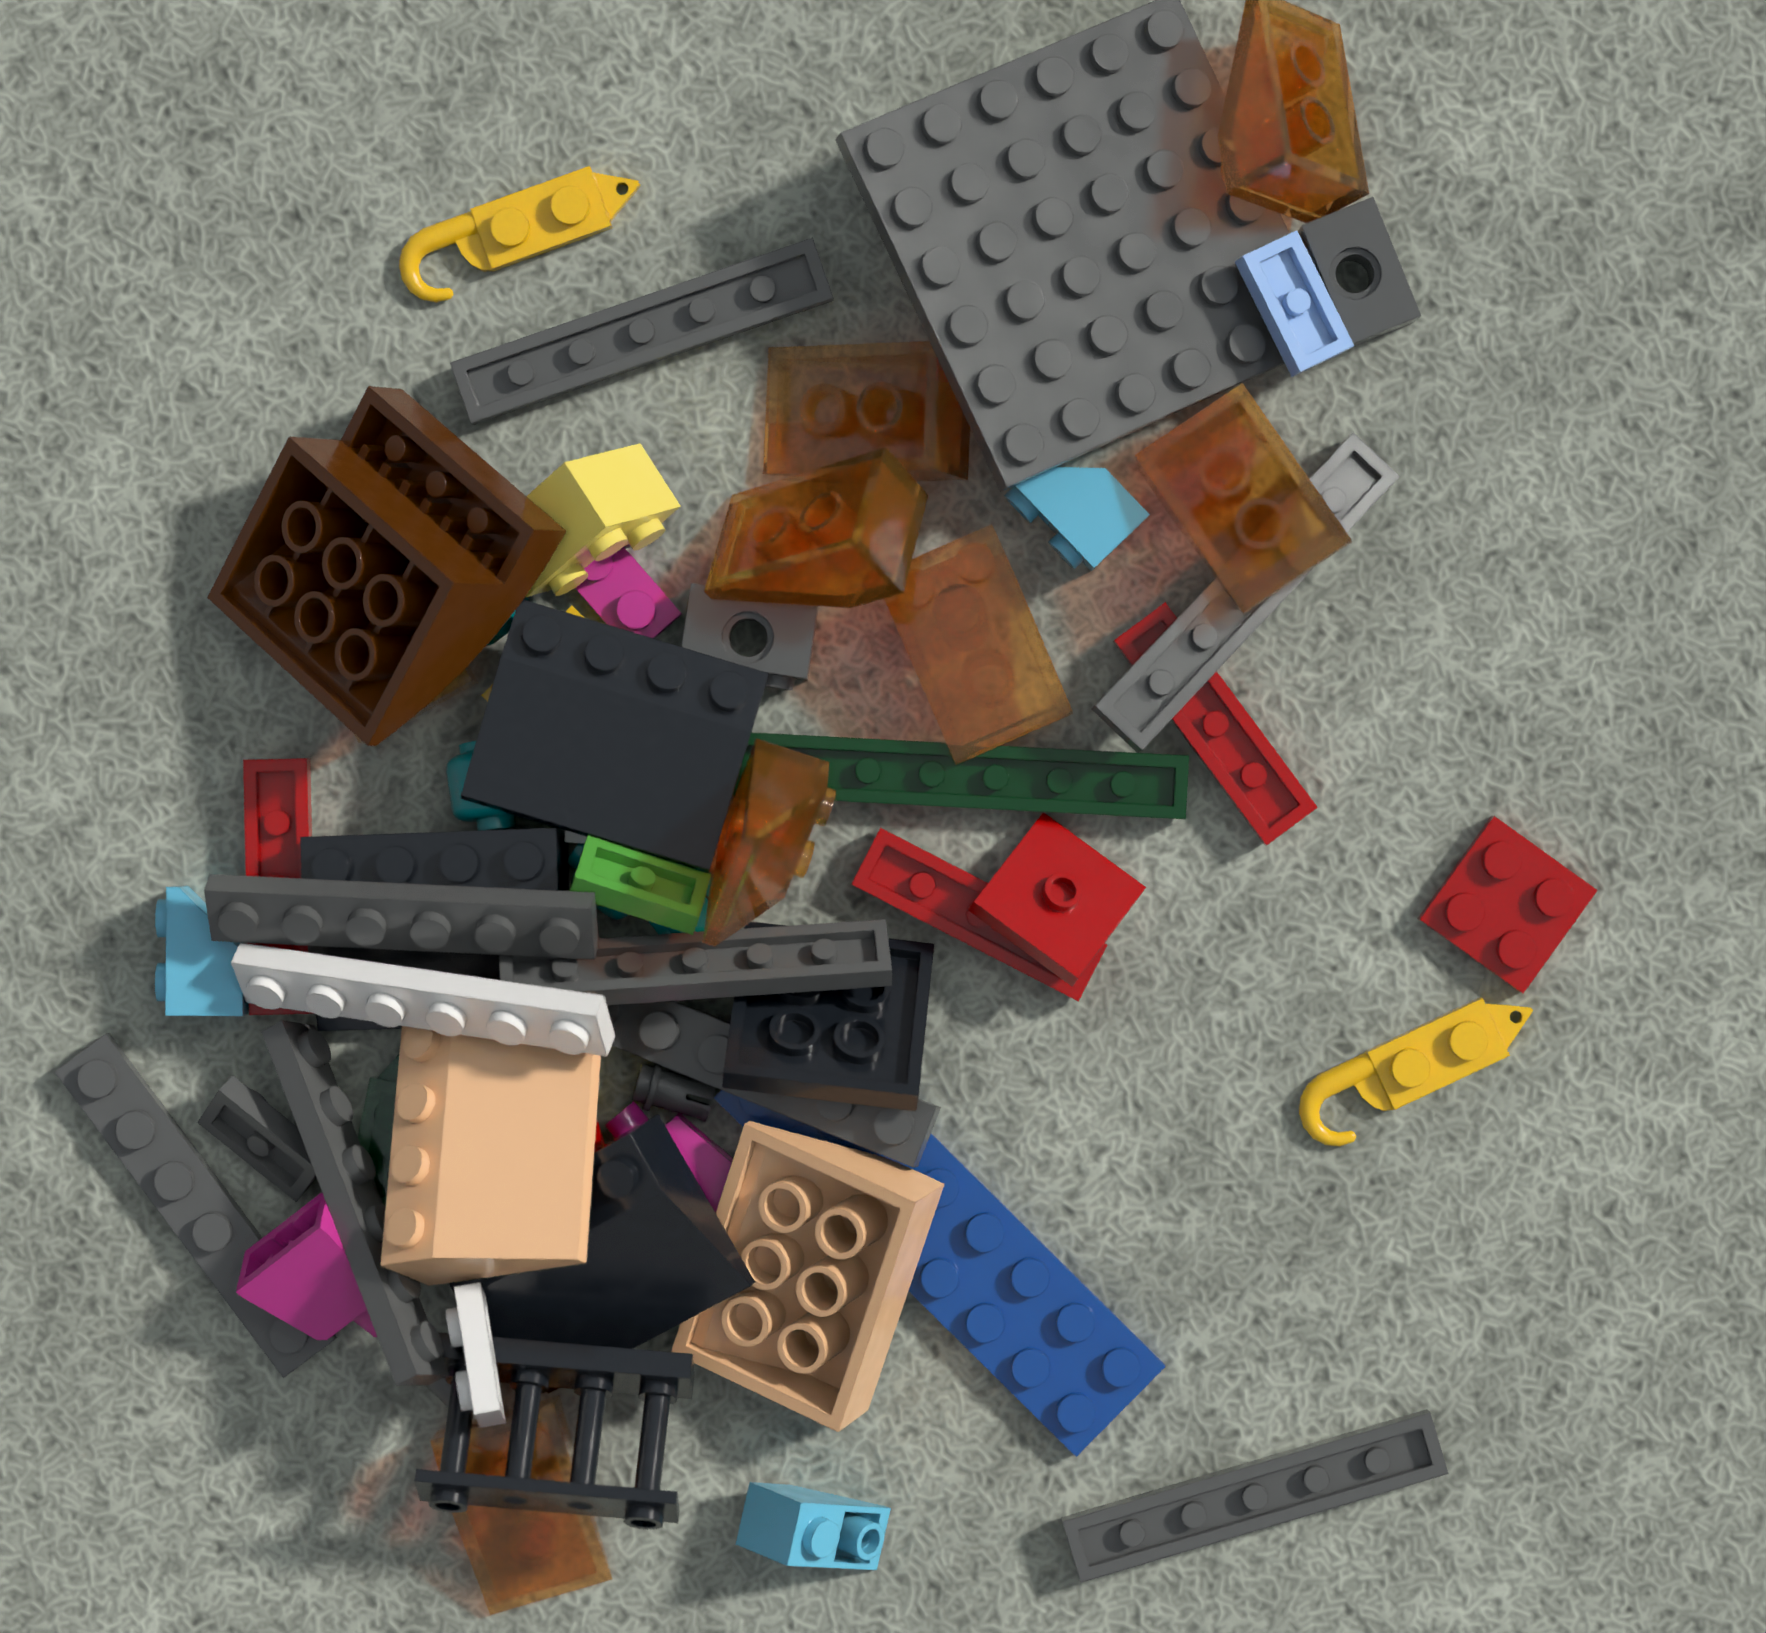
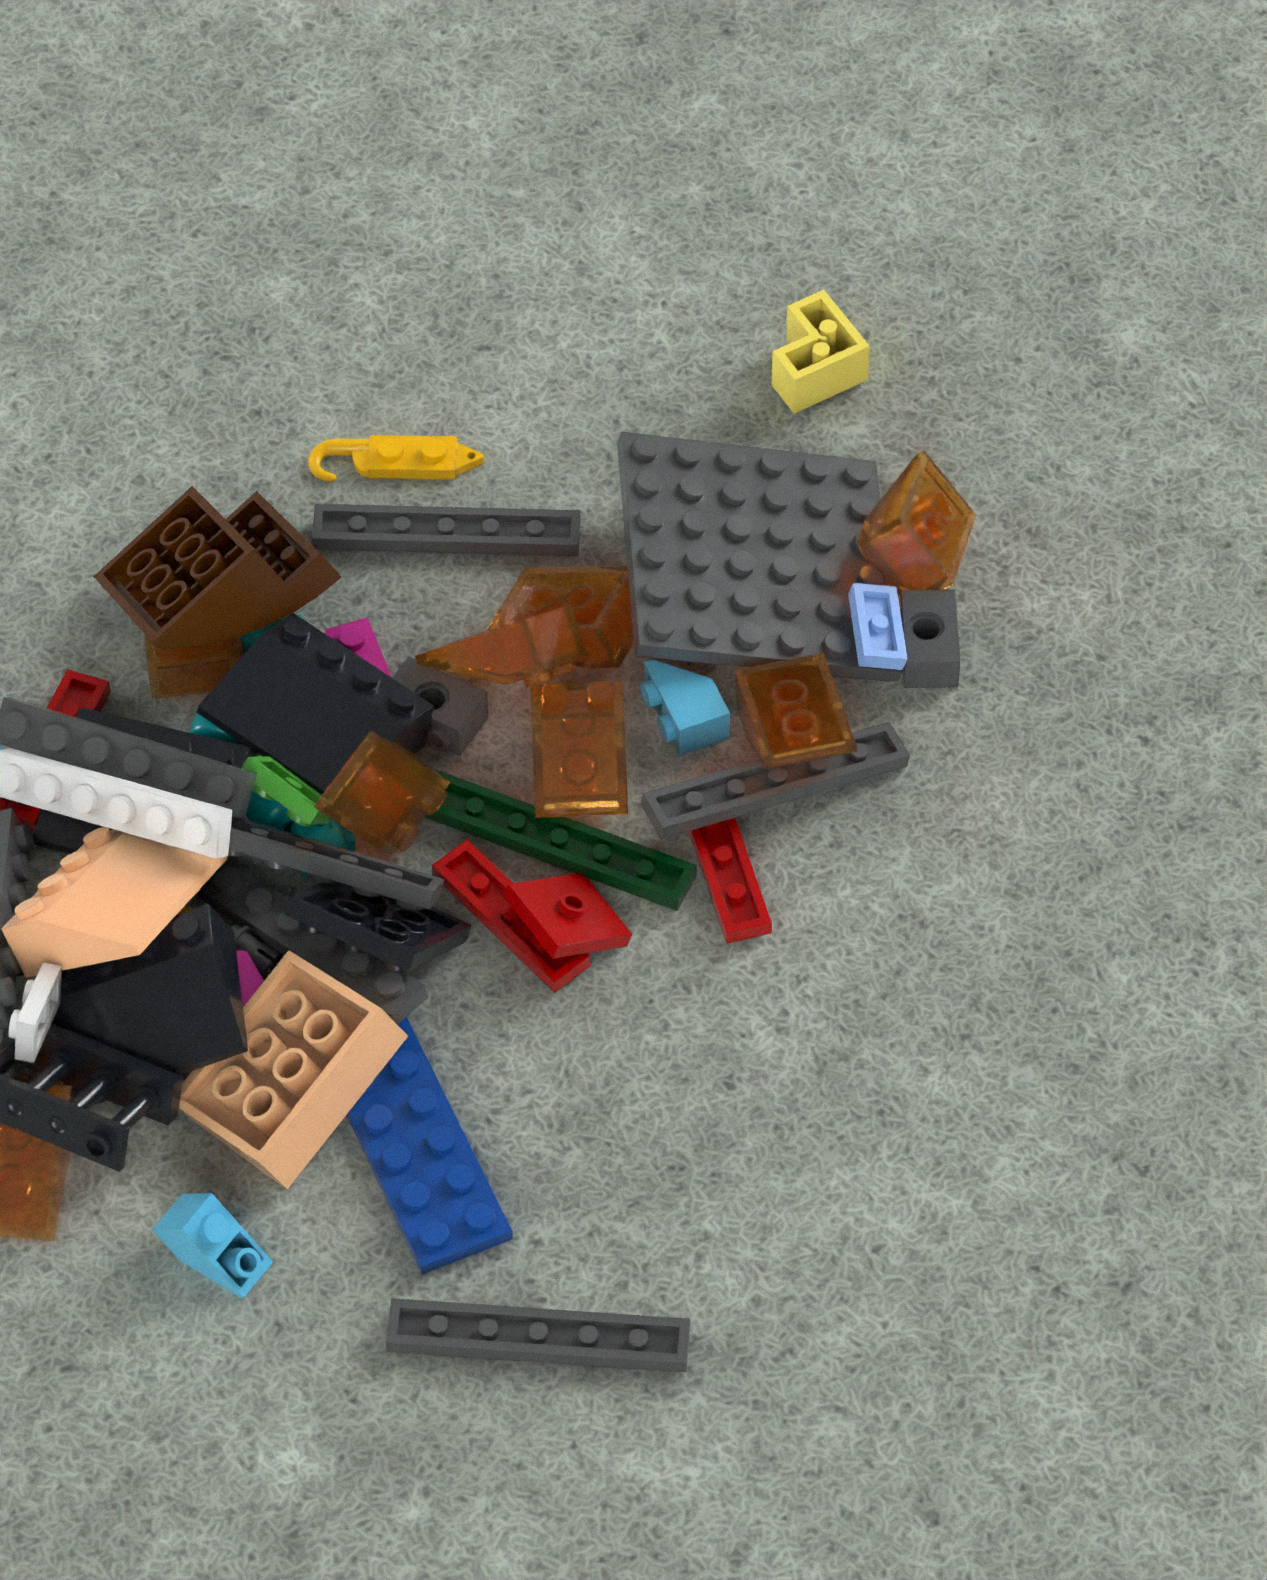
camera: 20 degrees right, 35 degrees down
(603, 506) = (366, 593): light yellow brick -> none
(1415, 1063) = (777, 1107): yellow plate -> none
(1507, 904) = (881, 1032): red plate -> none

